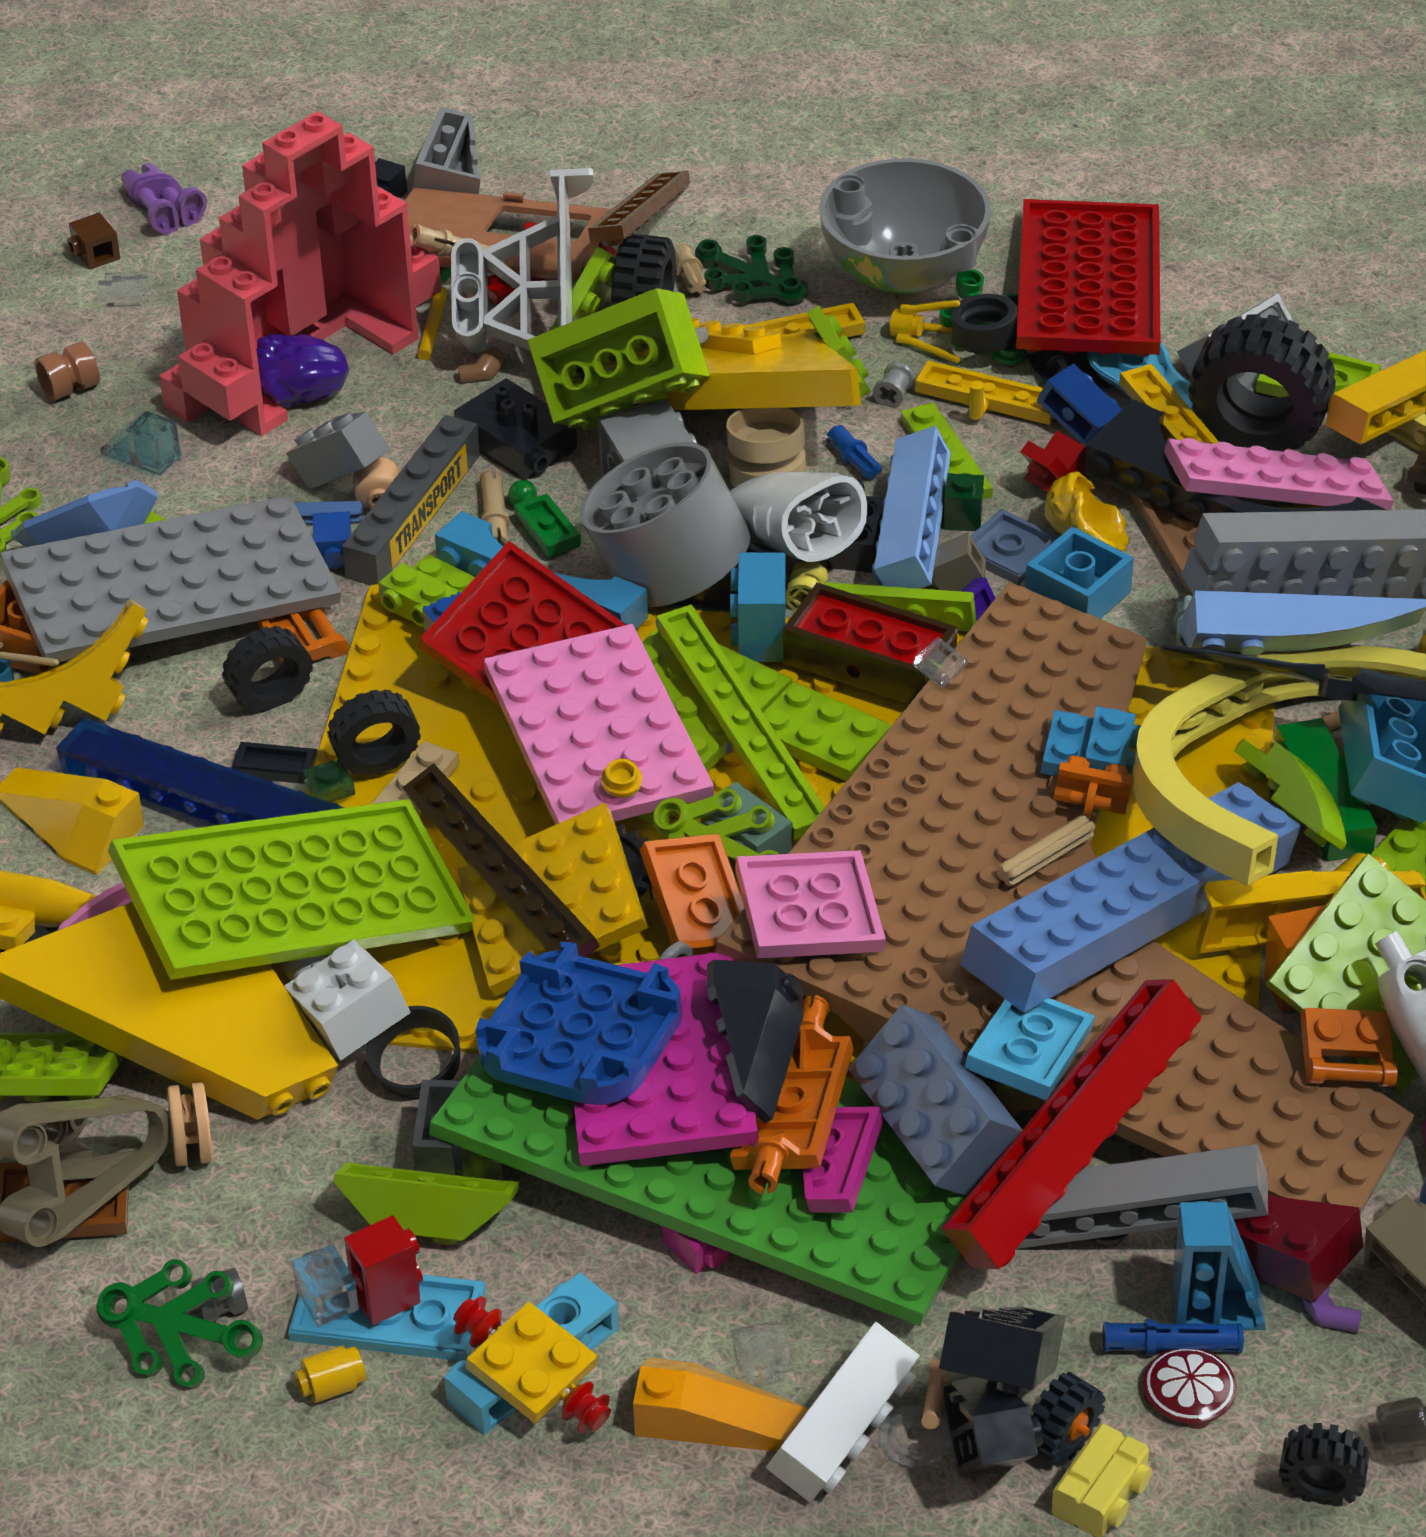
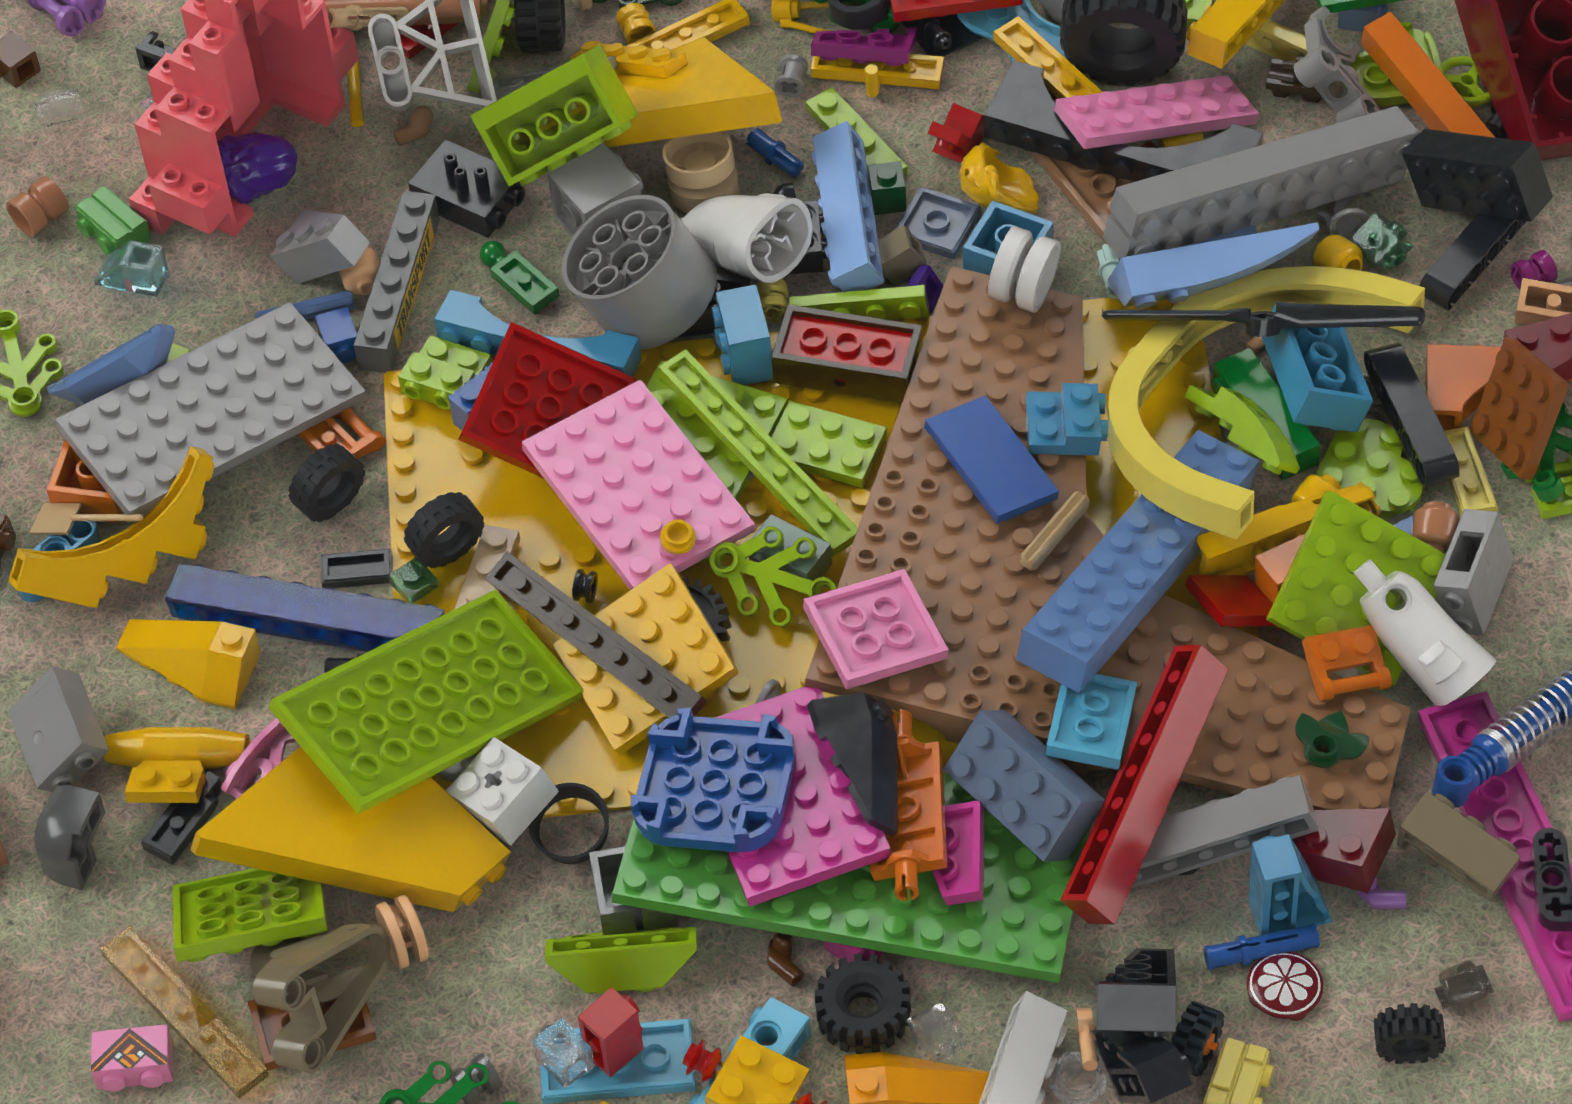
camera: 10 degrees left, 10 degrees up
(134, 392) = (110, 221): none -> bright green brick
(494, 504) = (471, 273): tan pin -> none
(511, 819) = (584, 586): none -> black bush
(608, 1239) = (780, 959): none -> reddish brown arm
(685, 1279) = (856, 981): none -> black tyre
(693, 889) = (767, 628): orange plate -> none
(742, 307) = (634, 20): none -> yellow wheel
(828, 330) = (734, 47): lime plate -> none
(940, 662) = (917, 365): clear tile -> none
(994, 369) = (877, 46): none -> magenta wing
(995, 768) = (991, 459): none -> blue tile
(1078, 403) = (964, 69): blue brick -> none
(1084, 589) = (1024, 269): none -> white wheel
(1093, 787) = (1078, 463): orange hips -> none
(1231, 961) = (1231, 599): none -> red tile
(1306, 1123) = (1331, 737): none -> dark green plate

